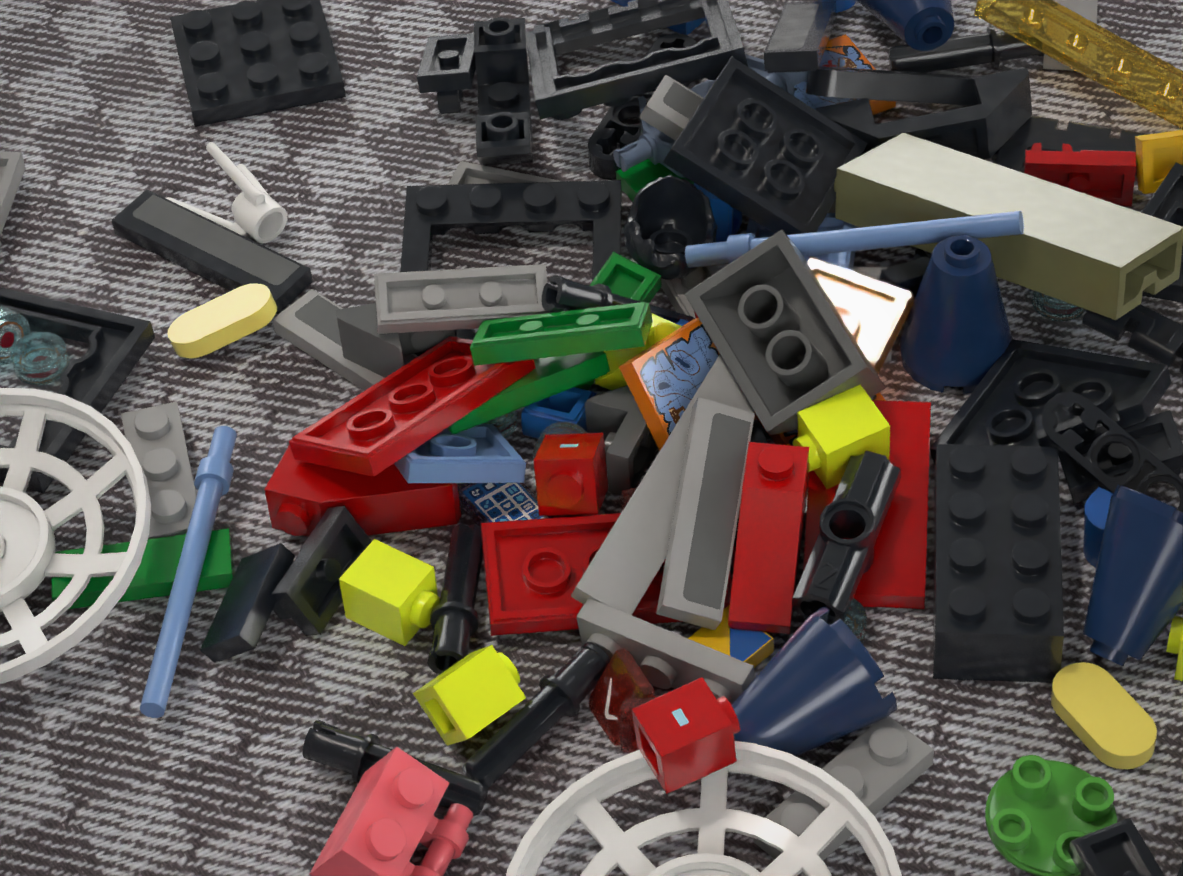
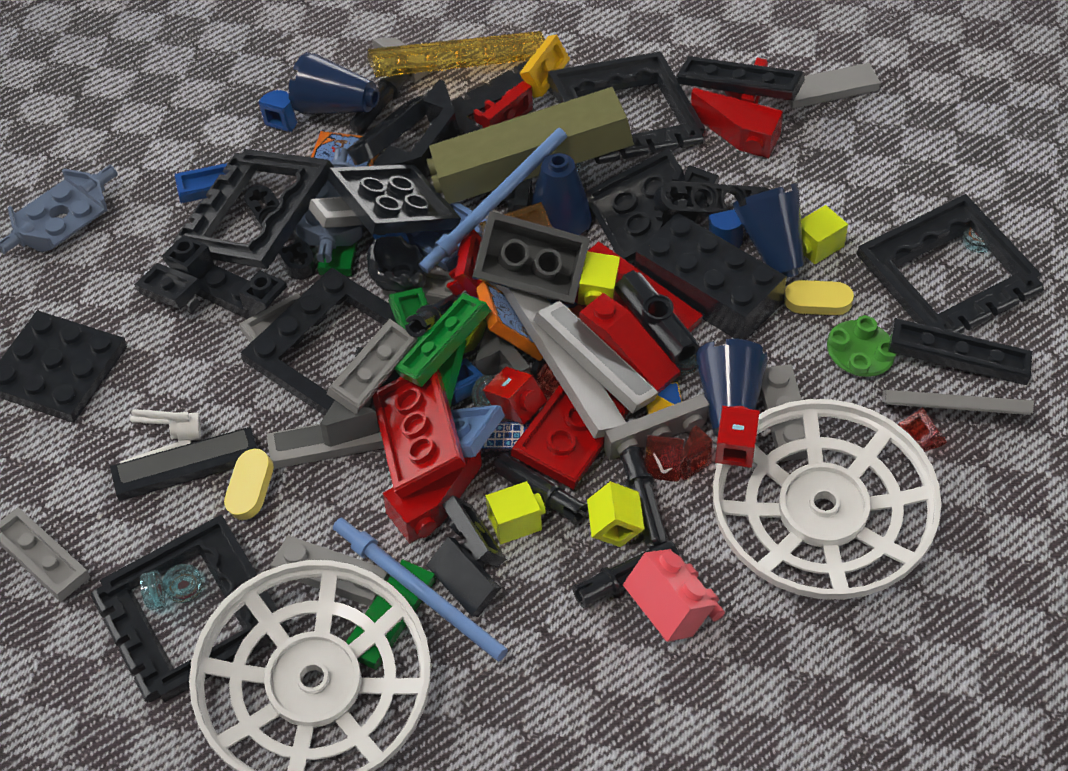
camera: 55 degrees left, 5 degrees up
(800, 36) = (320, 142): black tile -> none

